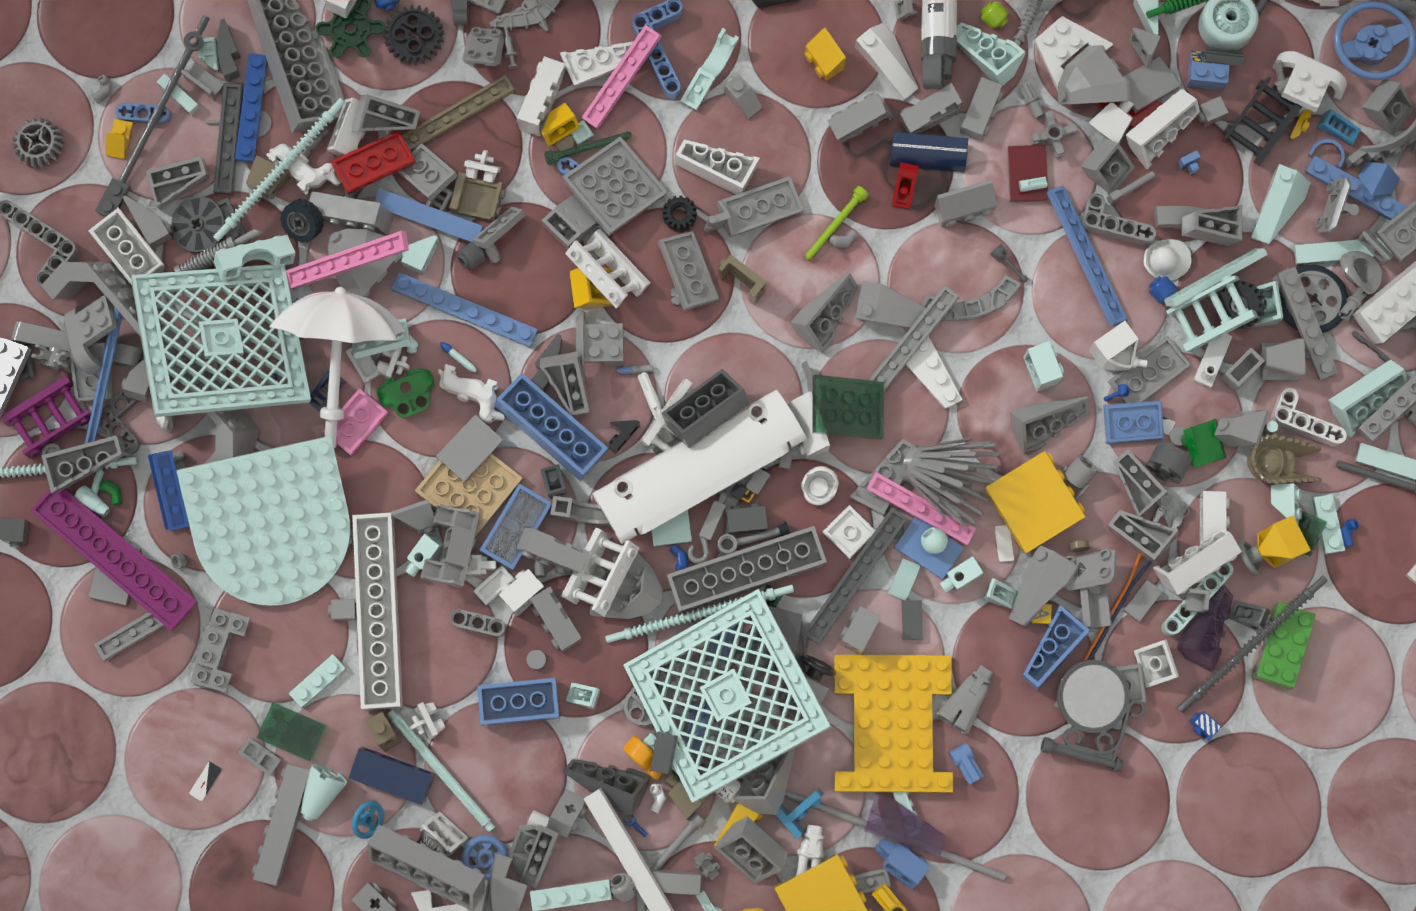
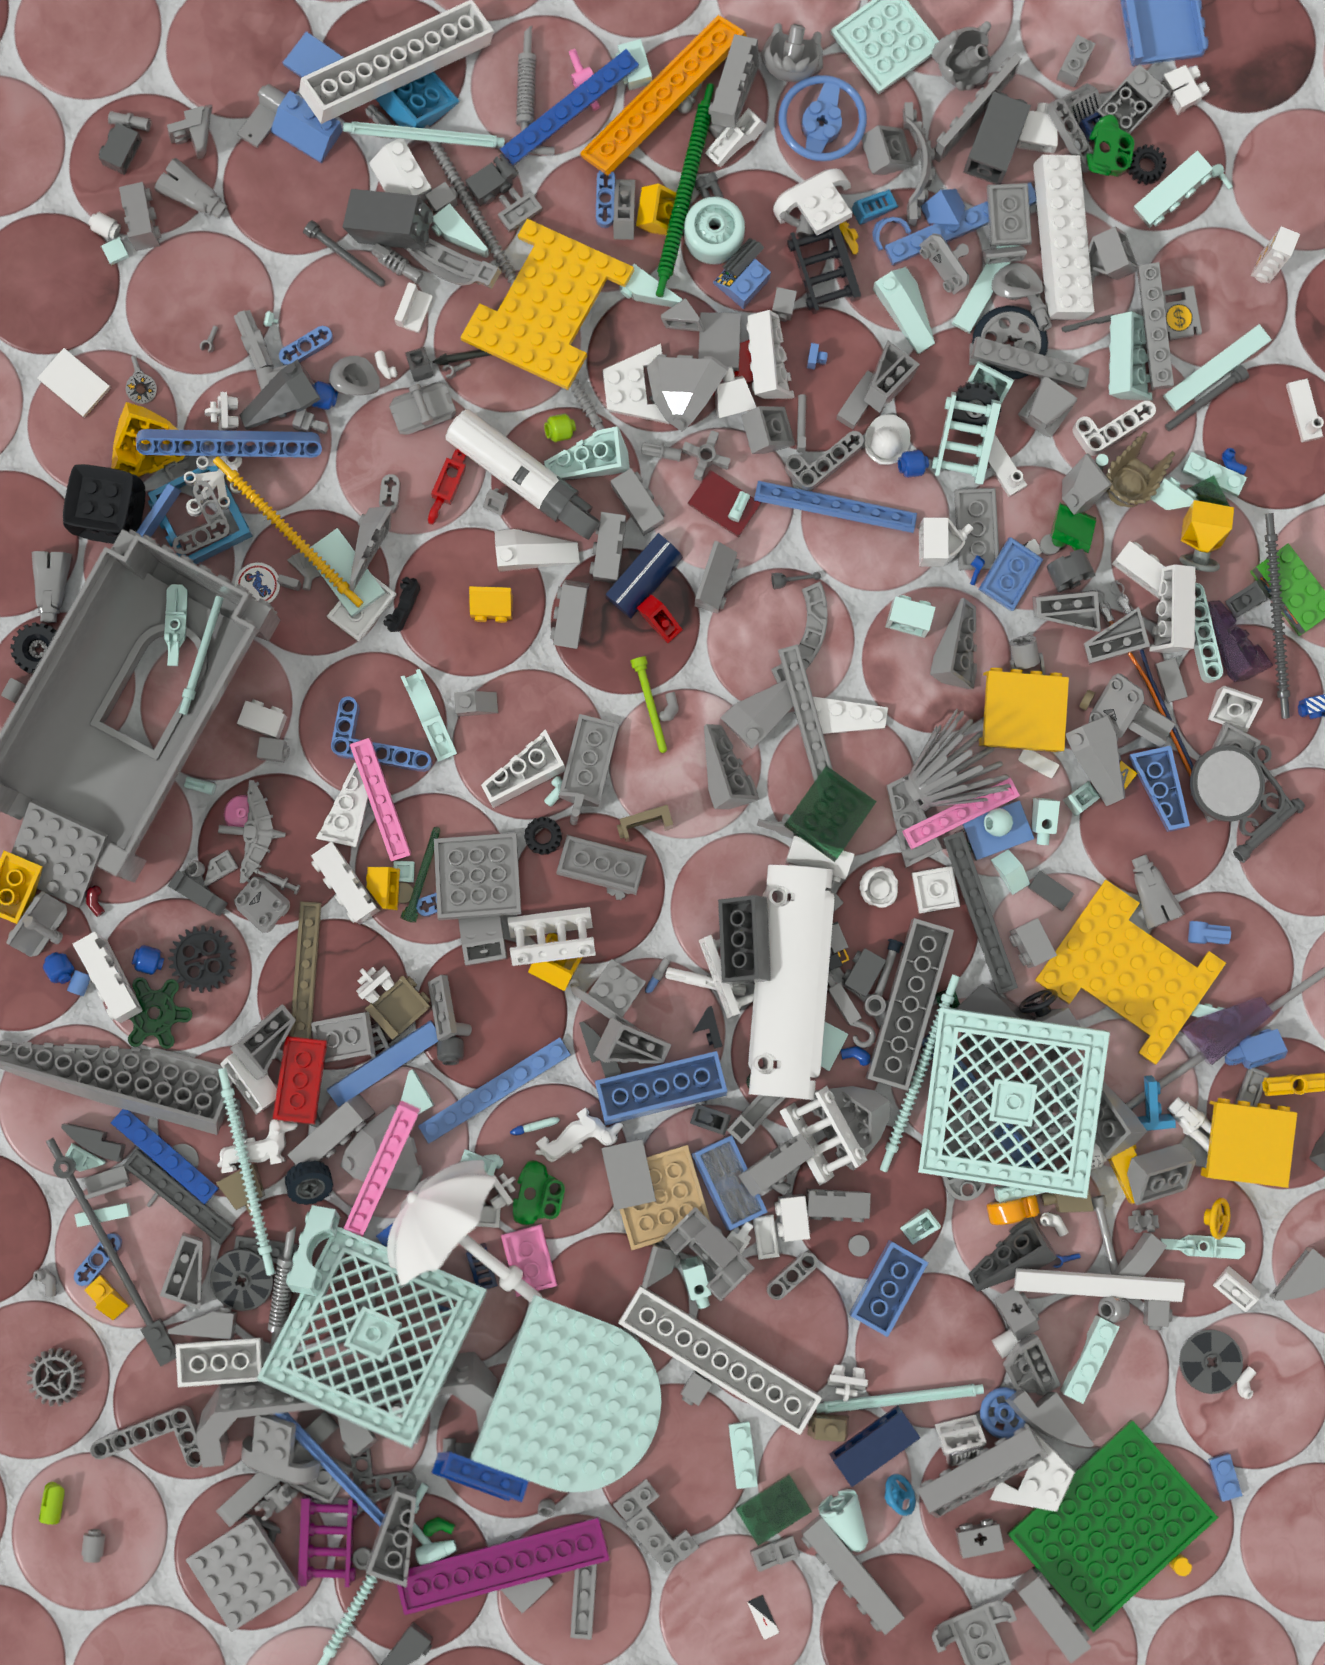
camera: 60 degrees left, 5 degrees up
(663, 753) = (1025, 1192): dark grey tile -> none
(712, 200) = (551, 799): none -> light aqua arm
(1197, 600) = (1209, 635): light grey panel -> none
(1214, 277) = (935, 410): light aqua tile -> none
(1242, 369) = (1032, 447): light grey brick -> none

